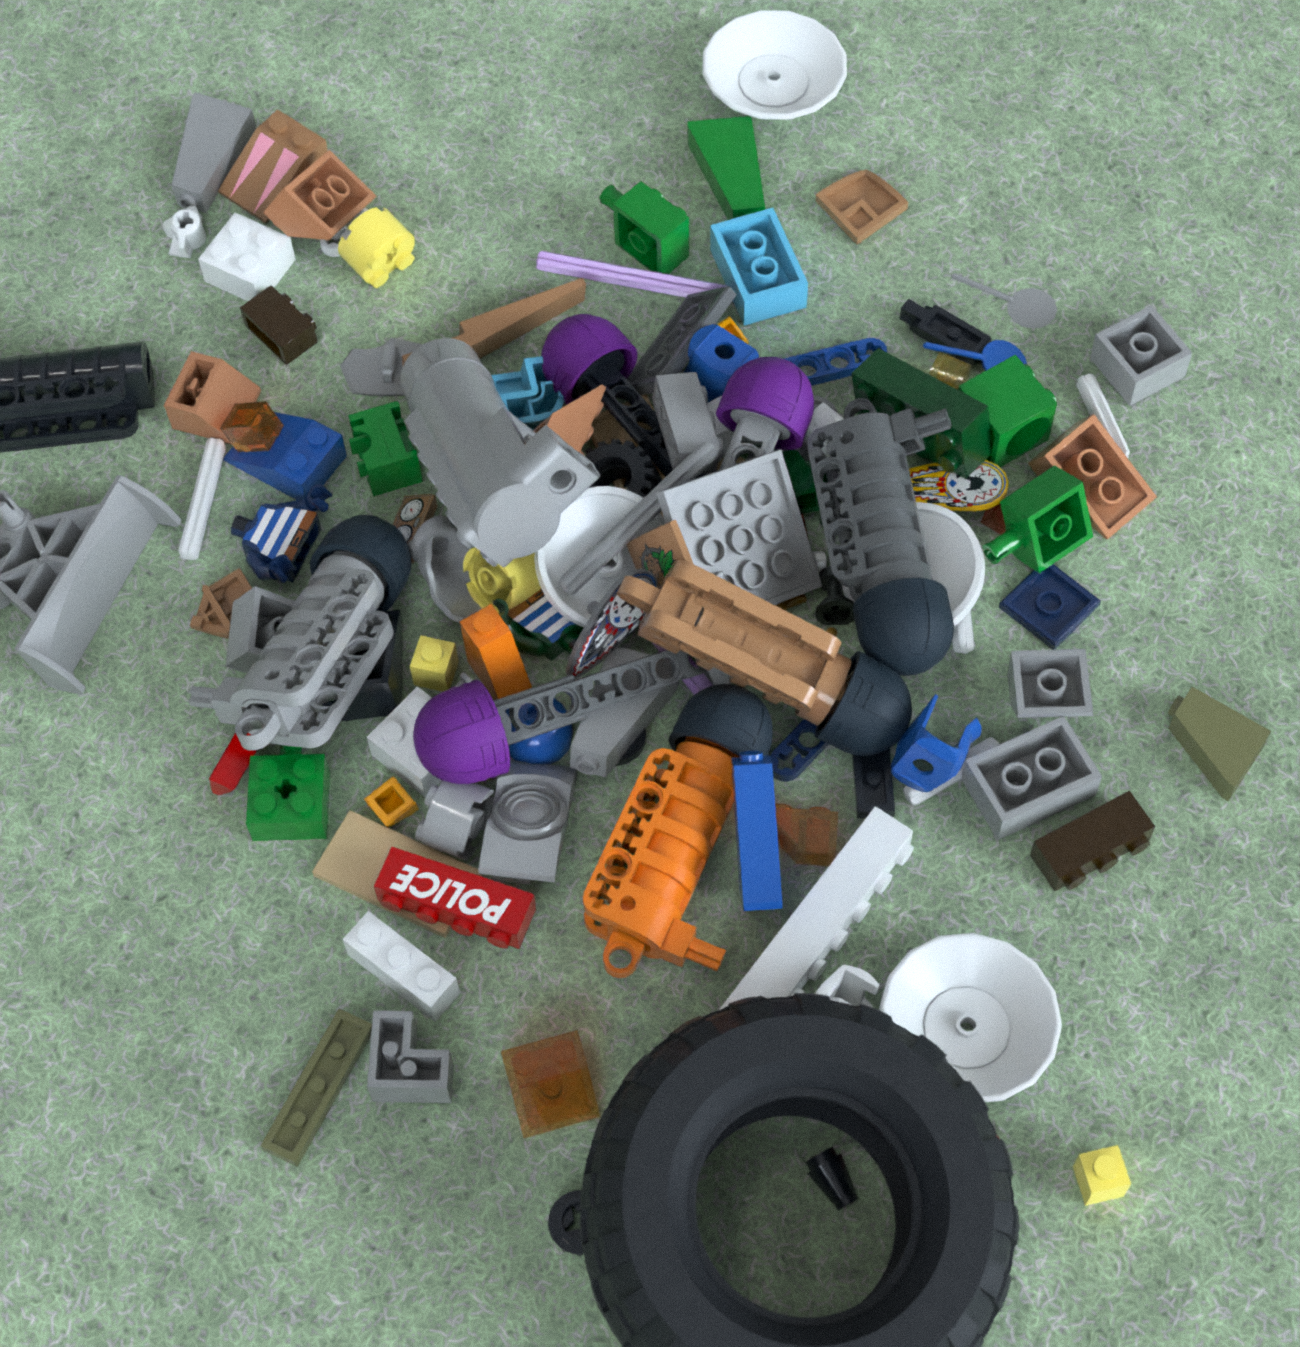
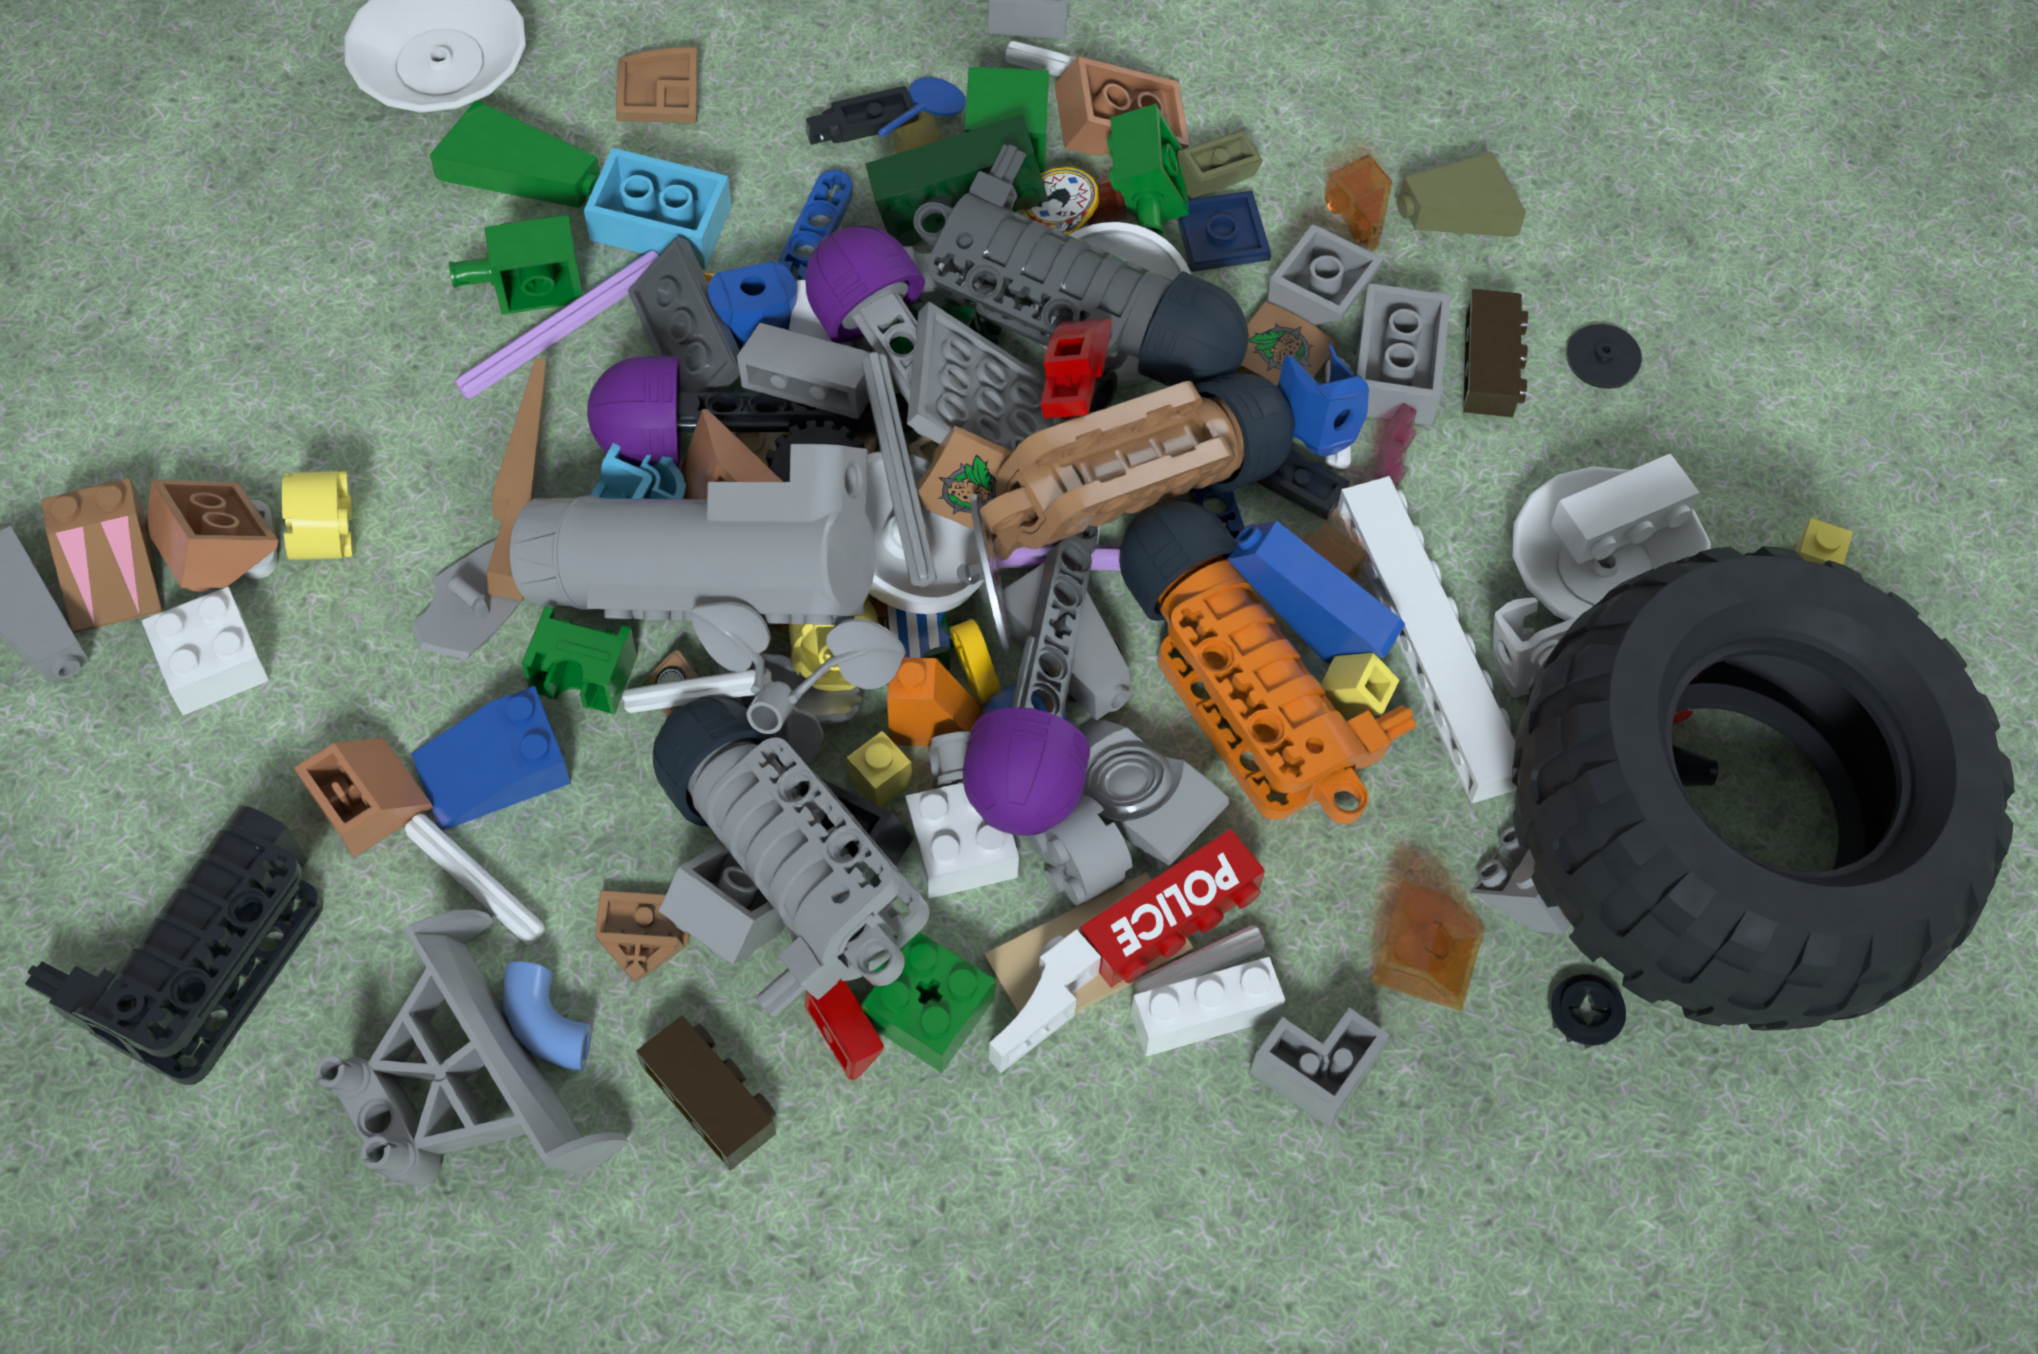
camera: 60 degrees left, 0 degrees up
(125, 595) = (536, 1021): none -> medium blue cylinder
(142, 714) = (708, 1091): none -> dark brown brick
(186, 231) = (103, 691): white piece -> none
(252, 426) = (442, 768): clear orange brick -> none
(279, 324) = (320, 671): dark brown piece -> none
(281, 535) = (600, 825): torso -> none
(317, 1087) = (1283, 1169): olive plate -> none
(332, 865) = (1064, 969): none -> white slope
(391, 802) = (1007, 908): light orange slope -> none
(402, 559) = (737, 634): none -> light grey plant
(404, 521) = (685, 691): none -> white axle
(439, 947) = (1205, 960): none -> white axle
(556, 659) = (975, 660): none -> yellow beam
(722, 914) = (1359, 684): none -> light yellow brick
(779, 551) = (1071, 367): none -> red slope
(932, 826) = (1394, 445): none -> clear pink slope
(972, 694) = (1281, 333): none -> medium nougat slope
(1001, 1001) = (1625, 509): none -> white brick
(1026, 307) = (886, 40): light grey piece -> none
(1098, 562) = (1218, 163): none -> olive slope
(1157, 674) = (1361, 197): none -> clear orange slope
(1165, 923) = (1604, 356): none -> black piece

